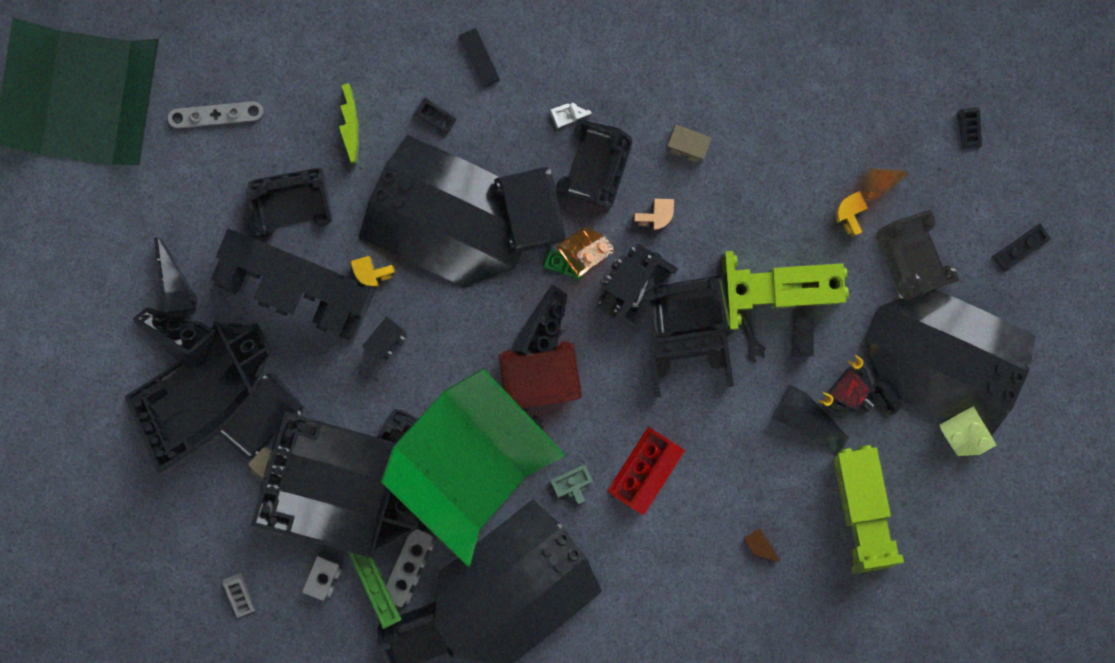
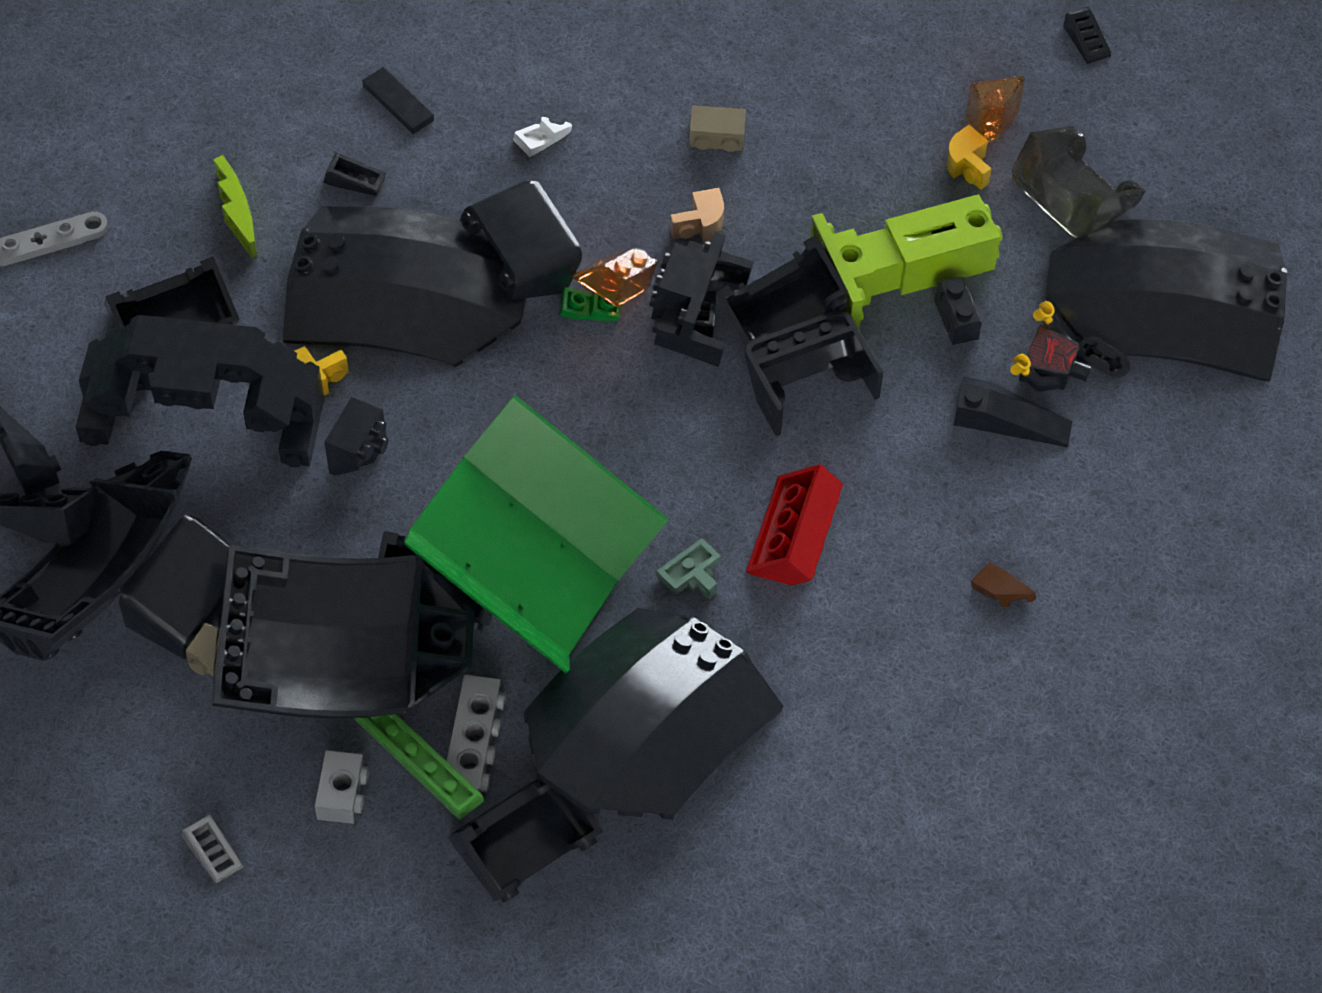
camera: 15 degrees left, 30 degrees down
(541, 376) = (611, 423): clear red windscreen -> none
(543, 327) = (583, 392): black wedge -> none
(597, 164) = (599, 173): black windscreen -> none
(754, 346) = (895, 343): black piece -> none
(866, 509) = (1135, 489): lime brick -> none
(967, 433) = (1237, 366): yellowish green slope -> none
(1021, 247) = (1213, 150): black tile -> none

